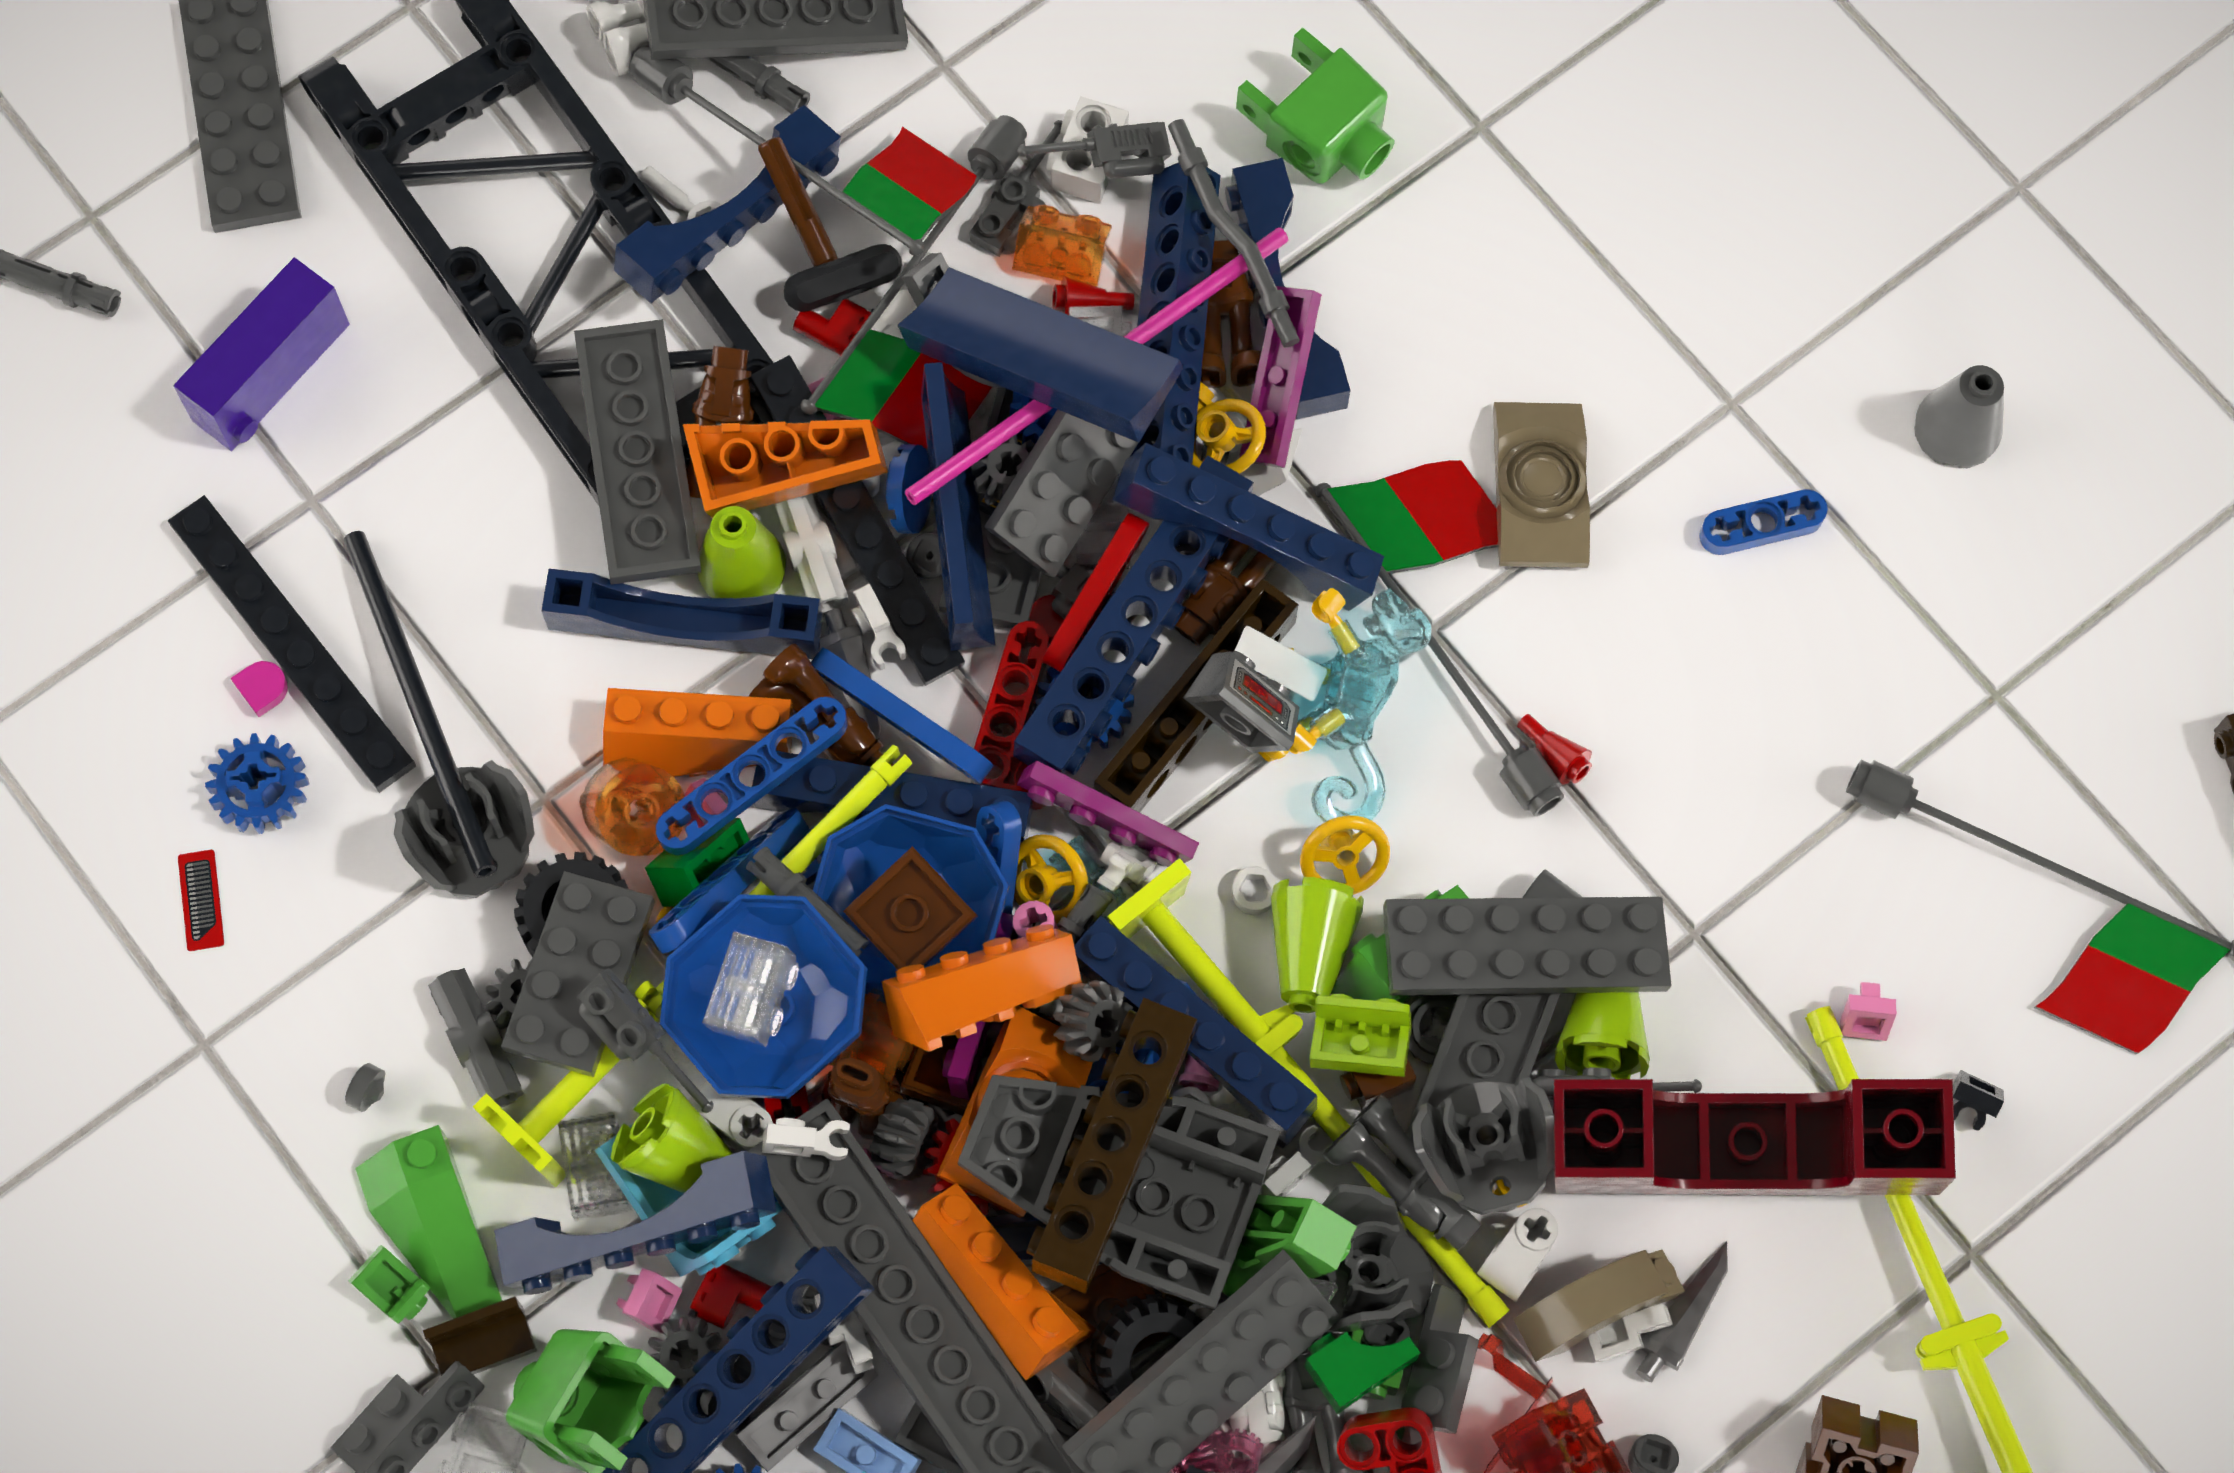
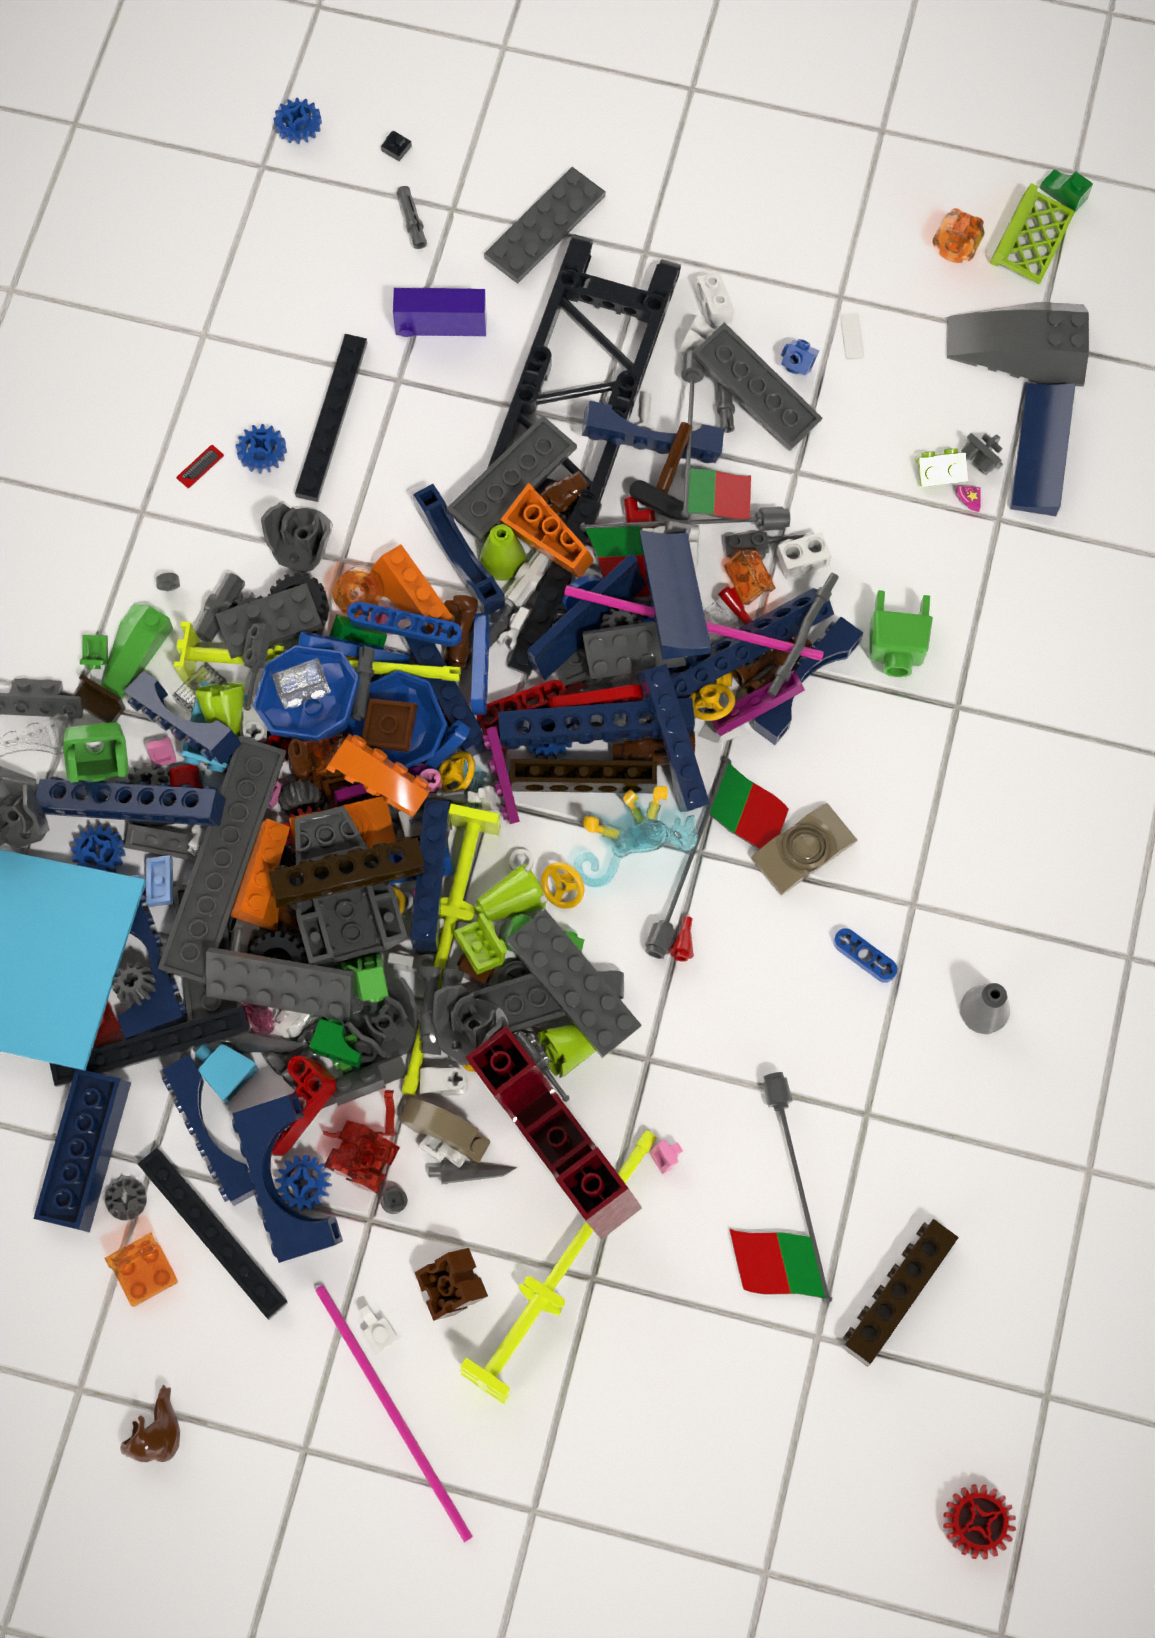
camera: 55 degrees right, 0 degrees up
(261, 686) = (304, 420): dark pink tile -> none
(420, 705) = (339, 480): black piece -> none
(792, 1138) = (255, 747): white plate -> none
(1092, 1020) = (399, 821): dark grey gear -> none
(1109, 143) = (807, 558): dark grey piece -> none
(1245, 703) = (591, 791): dark grey slope -> none
(1282, 663) = (625, 796): white sticker -> none
(1976, 1094) = (665, 1229): black tile -> none

